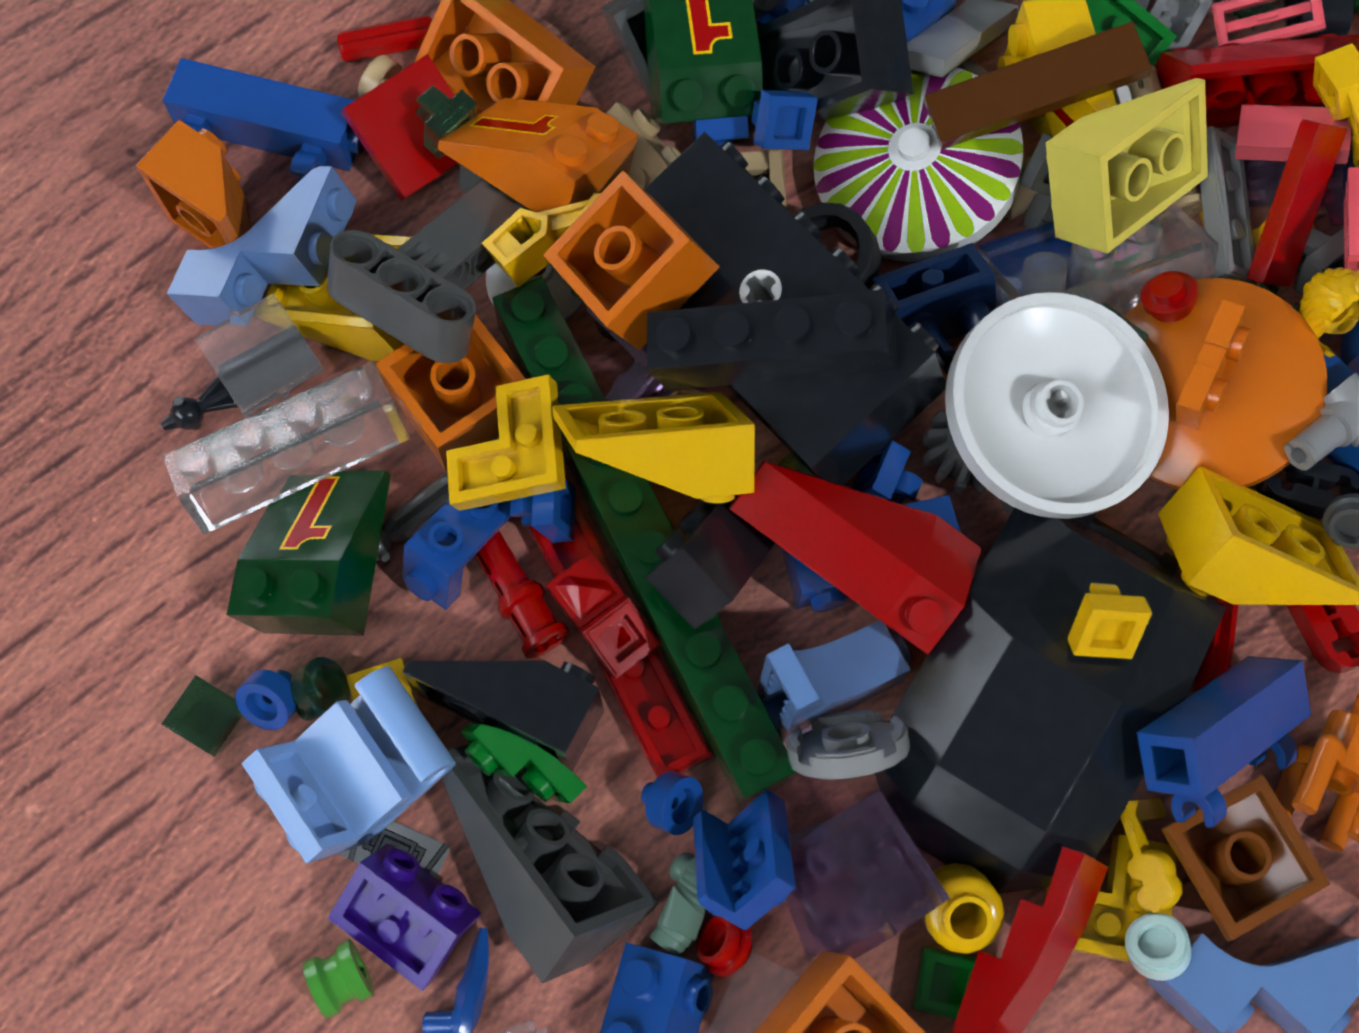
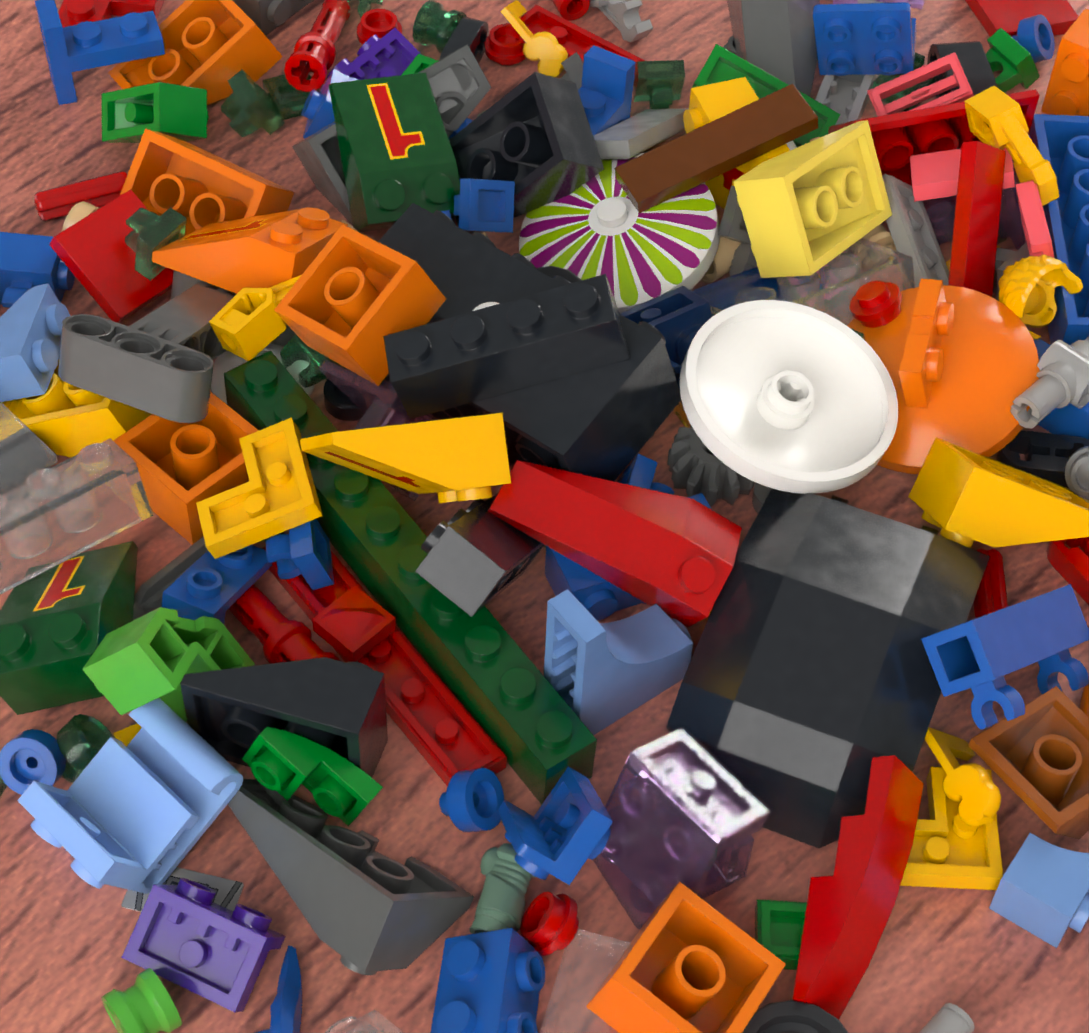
camera: 10 degrees left, 20 degrees down
(382, 632) = (154, 654): none -> bright green brick
(619, 637) = (397, 653): red tile -> none
(848, 745) = (642, 698): light grey tile -> none
(971, 914) = (788, 849): yellow head -> none
(1108, 623) = (873, 548): yellow tile -> none
(1158, 946) = (989, 850): light aqua tile -> none

